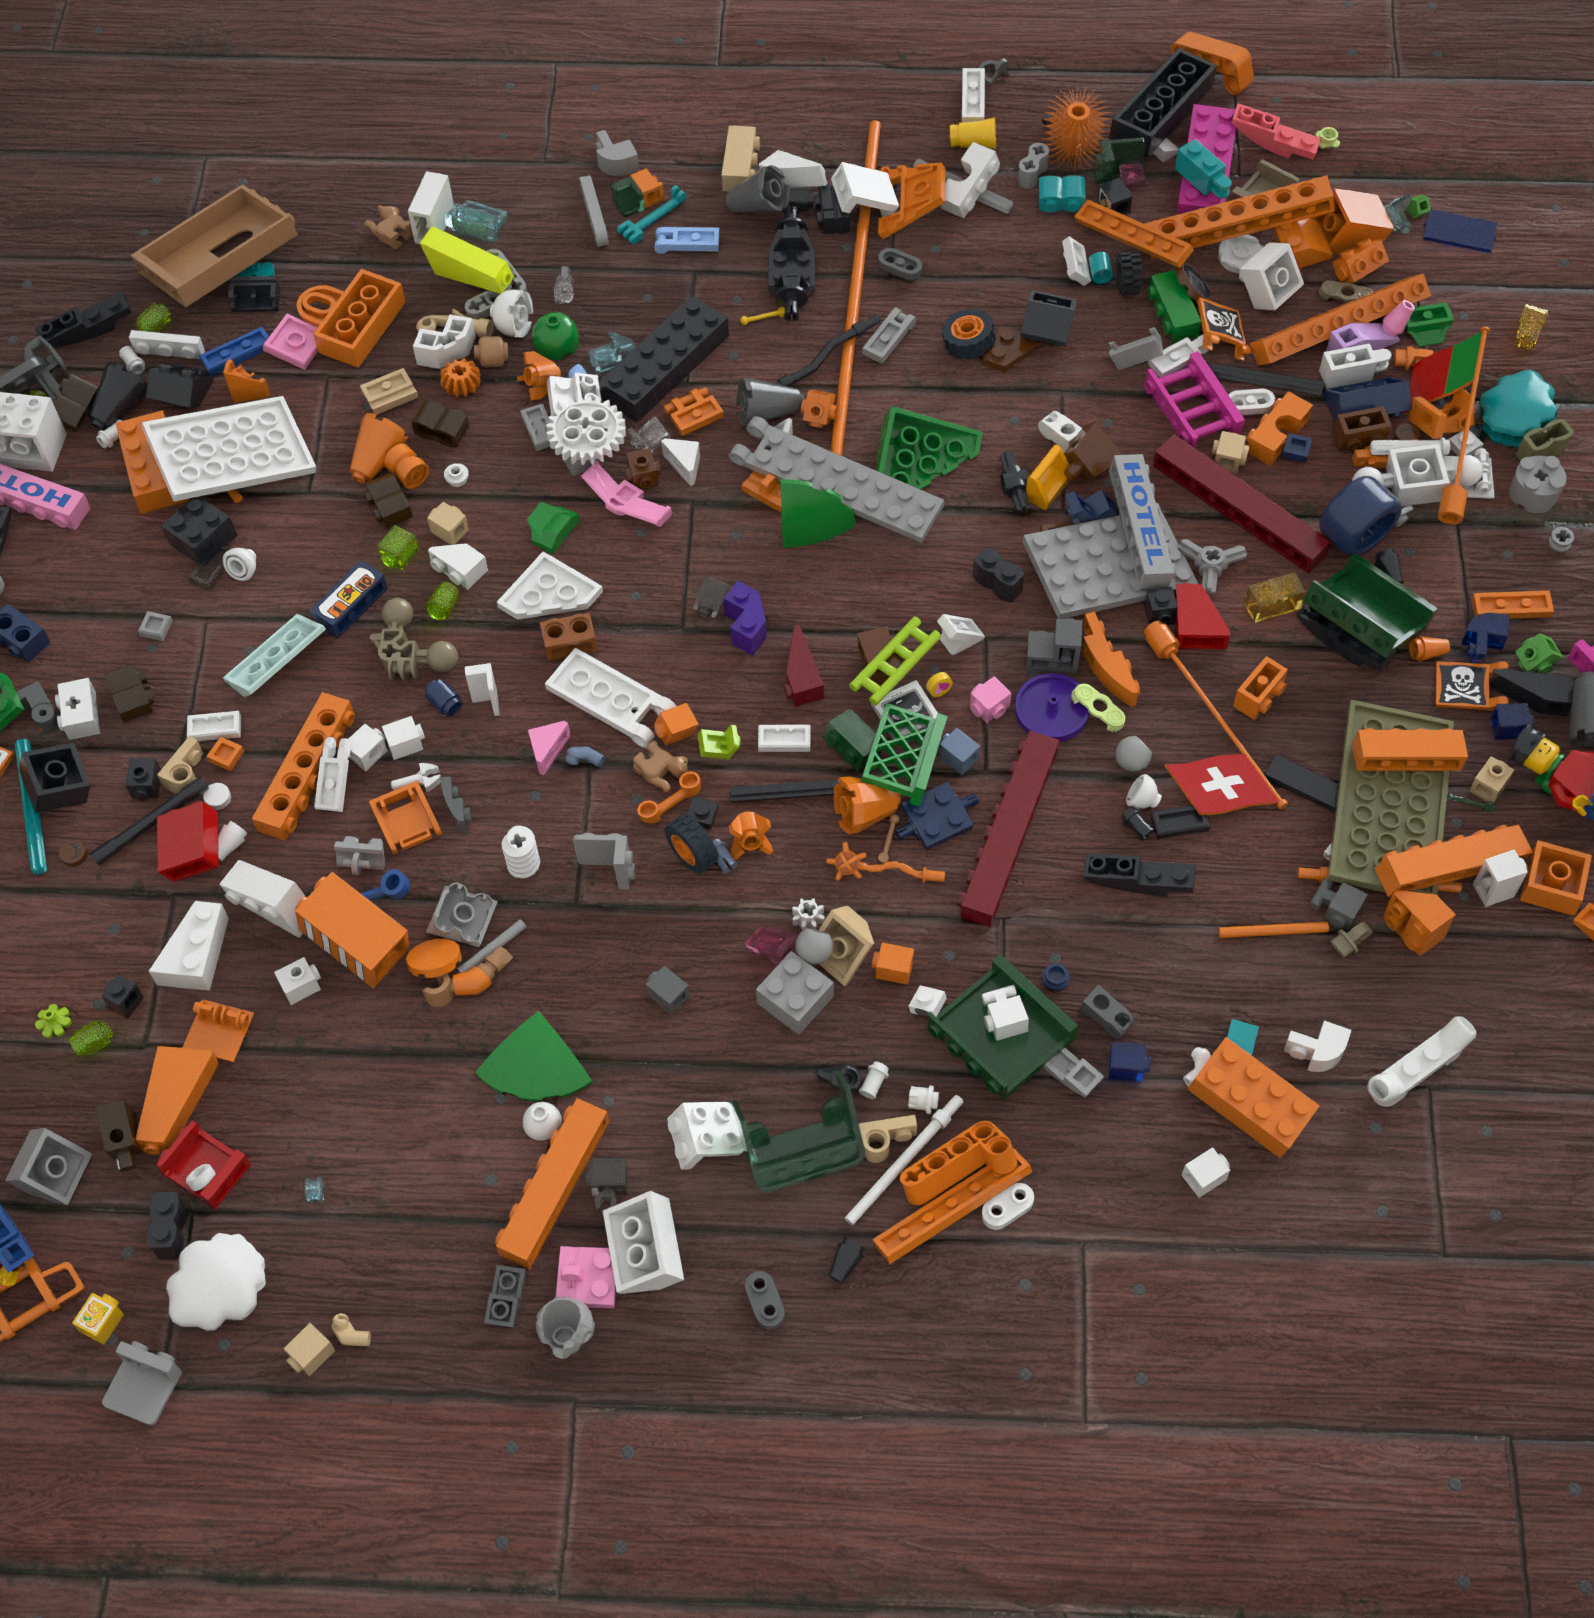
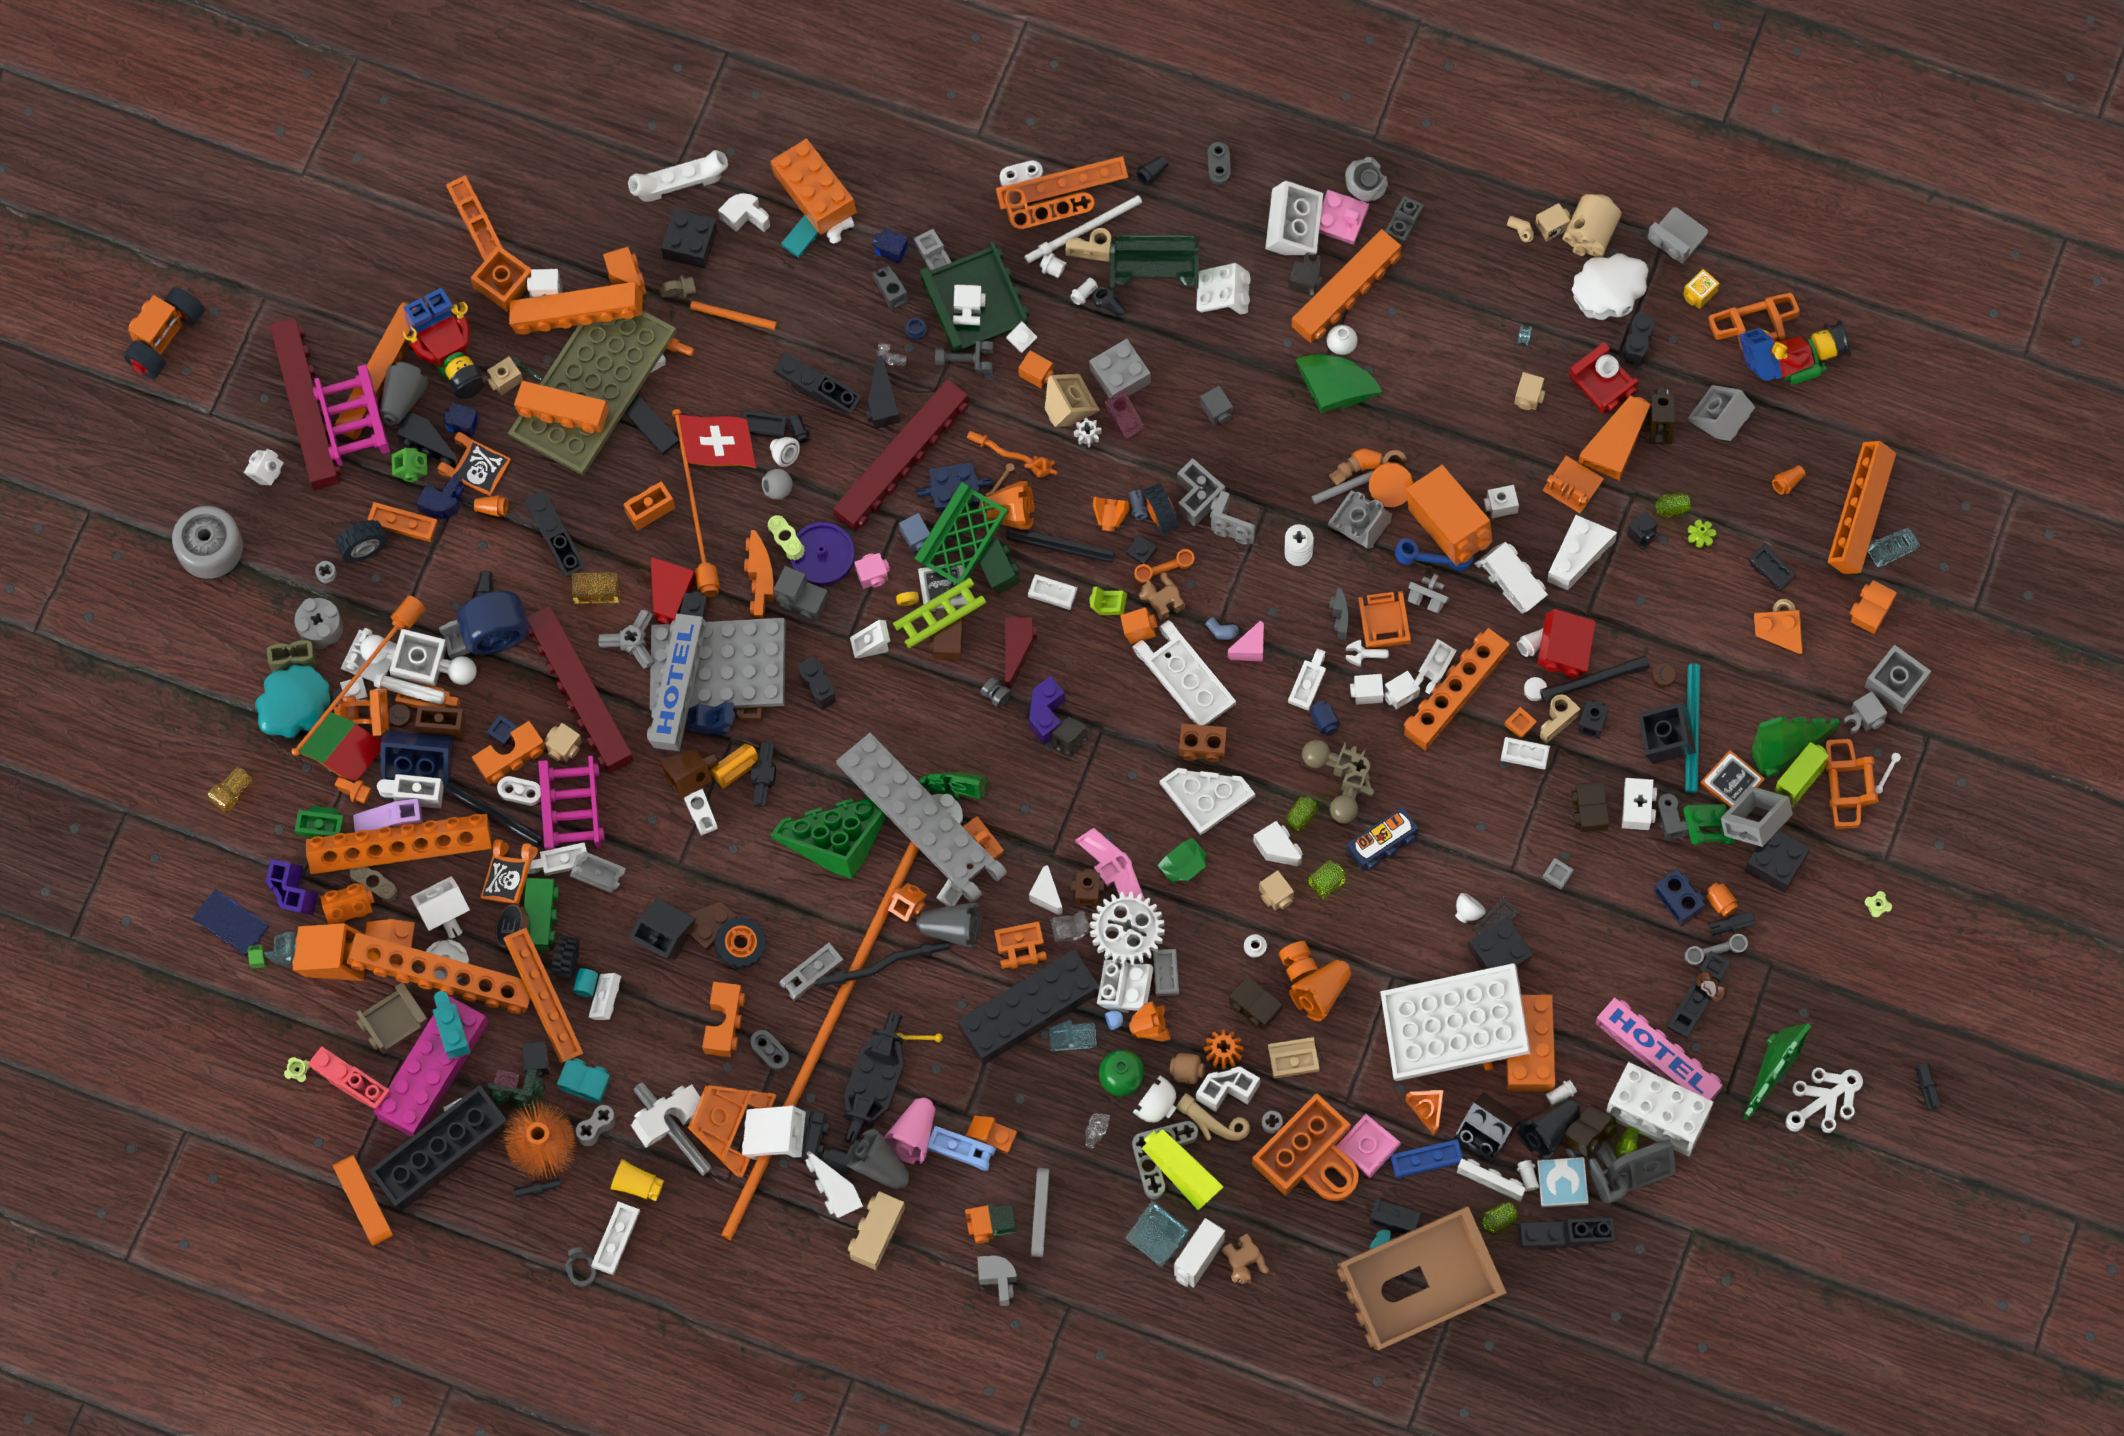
camera: 160 degrees left, 10 degrees up
(91, 362) = (1562, 1182): none -> tile
(253, 1351) = (1592, 225): none -> tan cylinder
(273, 654) = (1458, 805): light aqua slope -> none
(292, 1120) = (1529, 392): none -> tan brick
(388, 499) = (1323, 933): dark brown brick -> none
(395, 344) = (1266, 1117): none -> light grey bush
(471, 729) = (1308, 681): none -> white plate
(482, 685) = (1288, 708): white panel -> none
(634, 232) = (1006, 1182): teal hinge -> none
(651, 883) = (1201, 491): none -> light grey brick
(665, 260) = (989, 1132): none -> orange slope
(737, 228) = (912, 1131): none -> bright pink cone
(809, 622) = (996, 692): none -> dark grey wheel
(813, 946) = (1093, 394): light grey piece -> none
(957, 287) = (721, 1039): none -> orange arch
(967, 977) = (983, 368): none -> dark grey bar
(1057, 878) = (881, 400): none -> black slope
(1073, 933) = (891, 358): none -> clear arm
(1206, 1172) = (869, 150): white brick -> none
(1343, 905) = (674, 312): dark grey brick -> none
(1368, 993) = (689, 238): none -> black brick
(1371, 606) = (527, 544): dark green panel -> none
(1397, 319) = (349, 822): bright pink cone -> none
(1413, 253) = (285, 881): none -> dark purple brick
(1542, 560) = (361, 541): none -> black wheel

